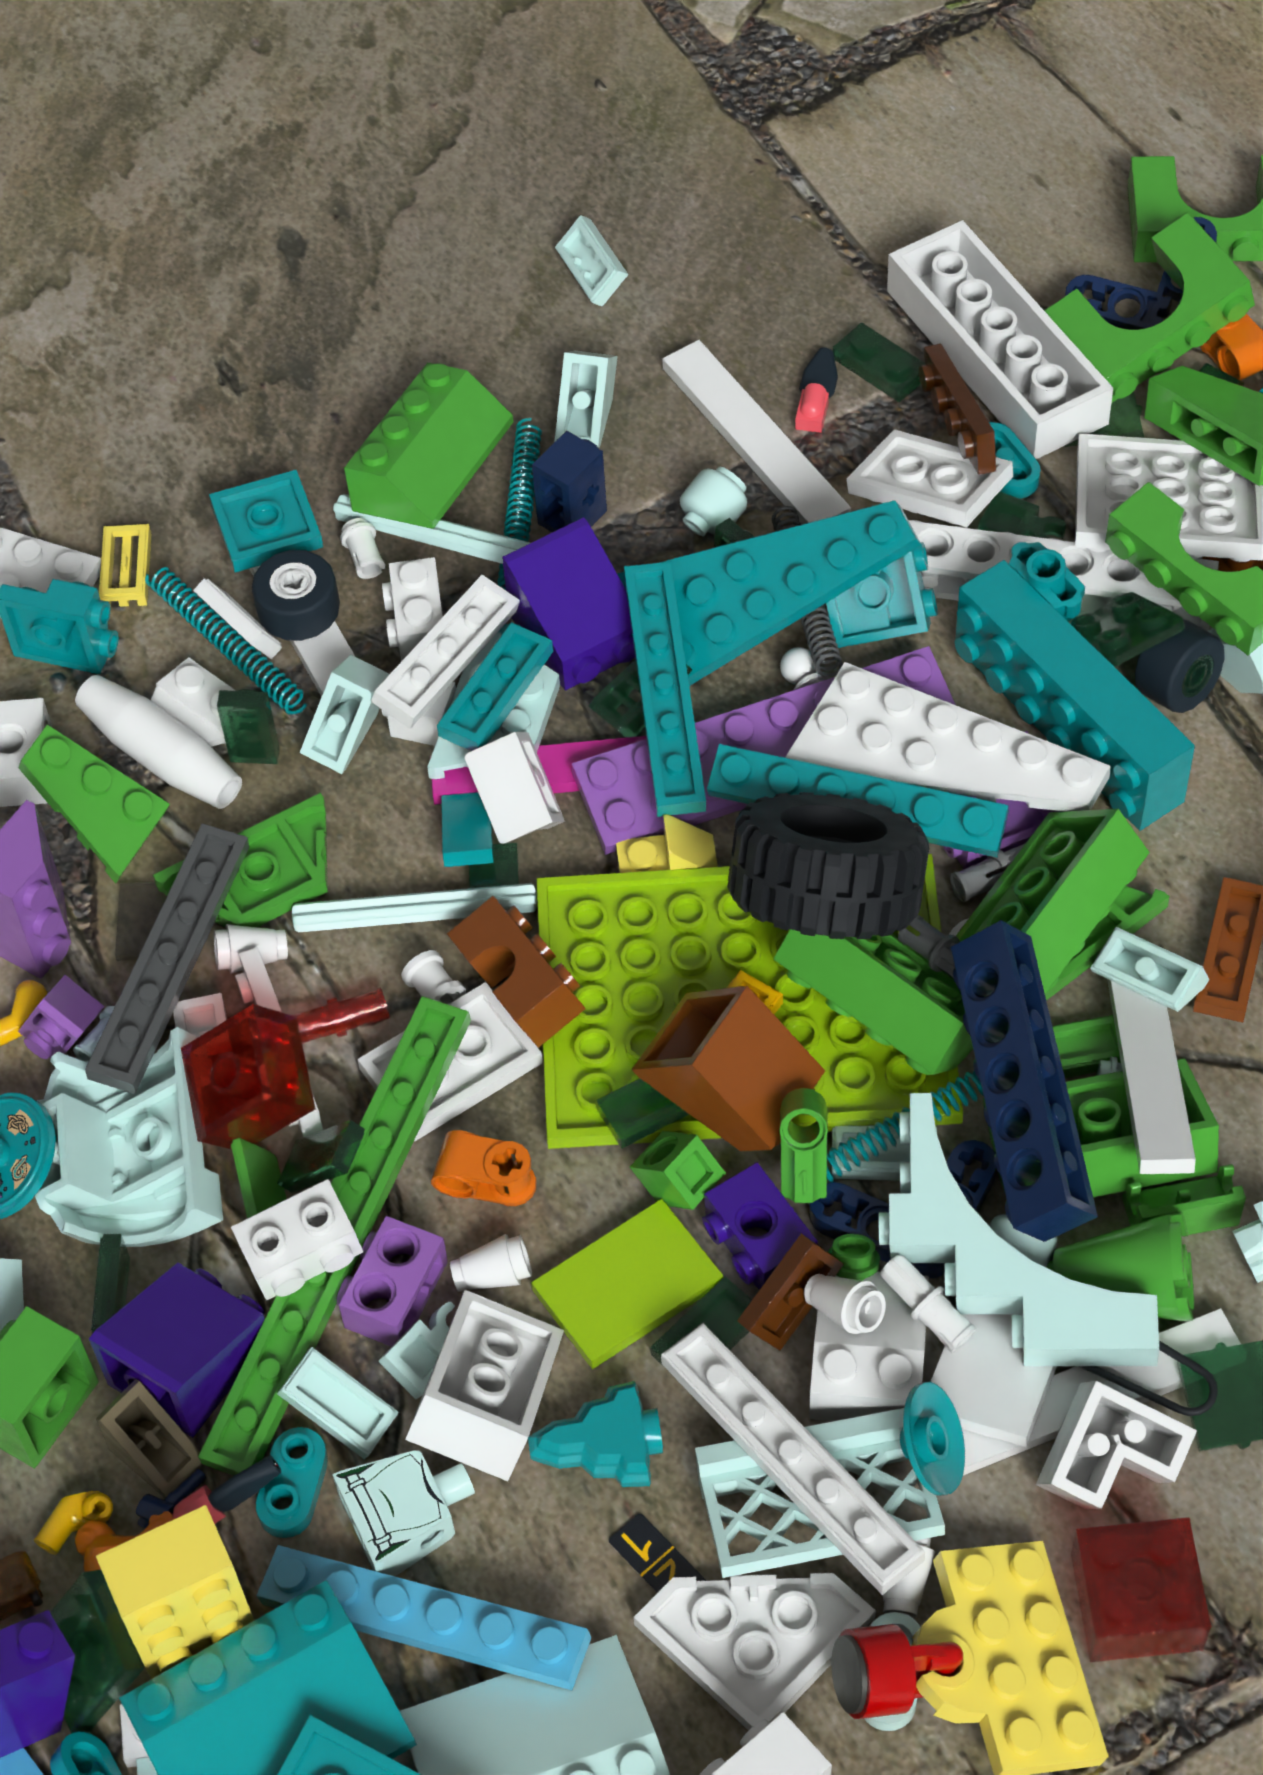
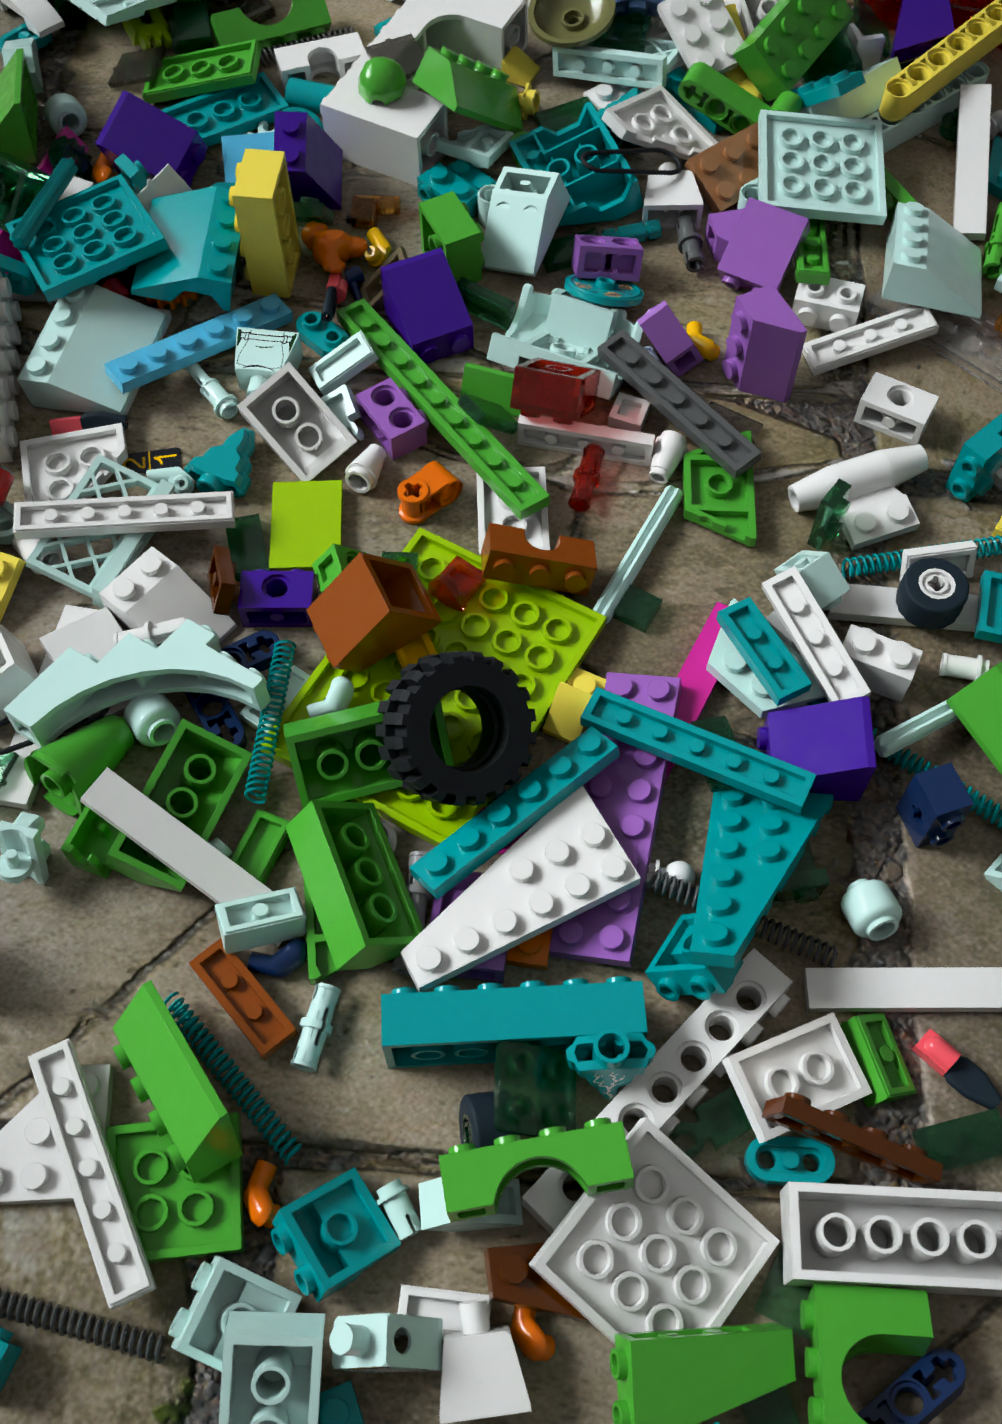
camera: 120 degrees right, 5 degrees up
(95, 798) = (828, 424): bright green wing -> none
(297, 1240) = (434, 366): white brick -> none
(431, 979) = (572, 527): white bush -> none
(465, 830) = (674, 602): teal tile -> none
(489, 1553) = (224, 404): none -> light aqua pin
(513, 787) = (680, 636): white panel -> none
(605, 1040) = (456, 584): none -> clear red tile
(667, 1493) = (183, 481): none -> light aqua arm
(675, 1690) = (86, 421): none -> piece
(804, 1147) = (292, 621): bright green piece -> none
(847, 1302) = (183, 590): white cone -> none
(852, 445) = (878, 1058): none -> bright green slope
(857, 1255) = (225, 628): bright green plate -> none
(859, 1059) = (337, 699): none -> light aqua arm
(931, 945) = (360, 787): dark grey axle -> none
(933, 1439) = (70, 582): teal dish -> none
(1022, 1083) = (215, 738): dark blue brick -> none
(1166, 938) = (282, 963): none -> dark blue arm
(1205, 871) = (315, 1027): none -> light aqua pin

